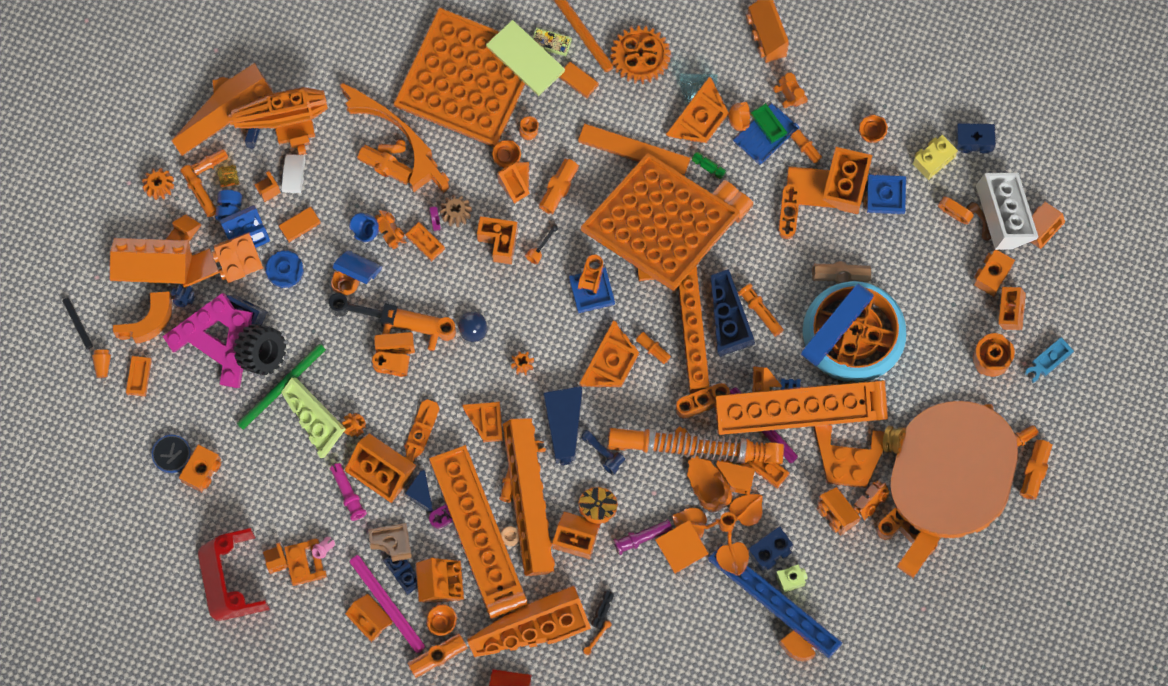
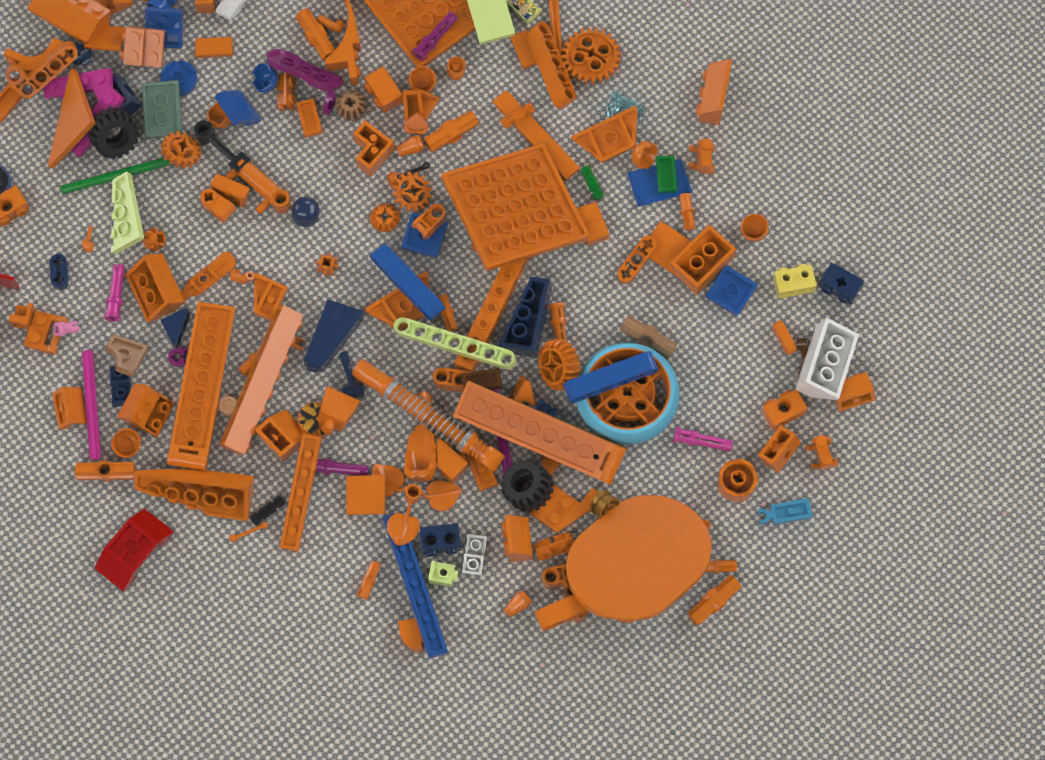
camera: 30 degrees right, 0 degrees up
(160, 323) = (45, 67): none -> orange beam
(217, 358) = (73, 121): none -> orange tile
(280, 503) = (54, 272): none -> dark blue beam
(287, 305) = (161, 108): none -> sand green tile
(295, 463) = (88, 246): none -> orange hand
(328, 331) = (181, 150): none -> orange gear
(408, 201) = (296, 66): none -> magenta plate
(452, 417) = (239, 278): none -> orange arm
(476, 181) = (383, 89): none -> orange brick
(493, 117) = (427, 41): none -> magenta pin
(523, 196) = (416, 123): none -> orange tile
(531, 218) = (411, 146): none -> orange cone
(543, 301) = (390, 223): none -> orange gear
(563, 265) = (411, 184): none -> orange gear
(604, 339) = (407, 282): none -> blue beam
(609, 141) = (517, 115): none -> orange axle
(610, 486) = (336, 410): none -> orange torso
(611, 81) = (551, 65): none -> orange beam
(624, 576) = (300, 492): none -> orange tile
(691, 372) = (461, 349): none -> yellowish green beam
(728, 385) = (487, 378): none -> reddish brown tile
(730, 620) = (369, 580): none -> orange axle
(781, 339) = (558, 363): none -> orange gear
(807, 545) = (474, 554): none -> white slope
(832, 465) = (518, 476): none -> black tyre
(871, 567) = (517, 604): none -> orange cone
(931, 340) = (692, 435): none -> dark pink pin
(1048, 292) = (823, 453): none -> orange piece

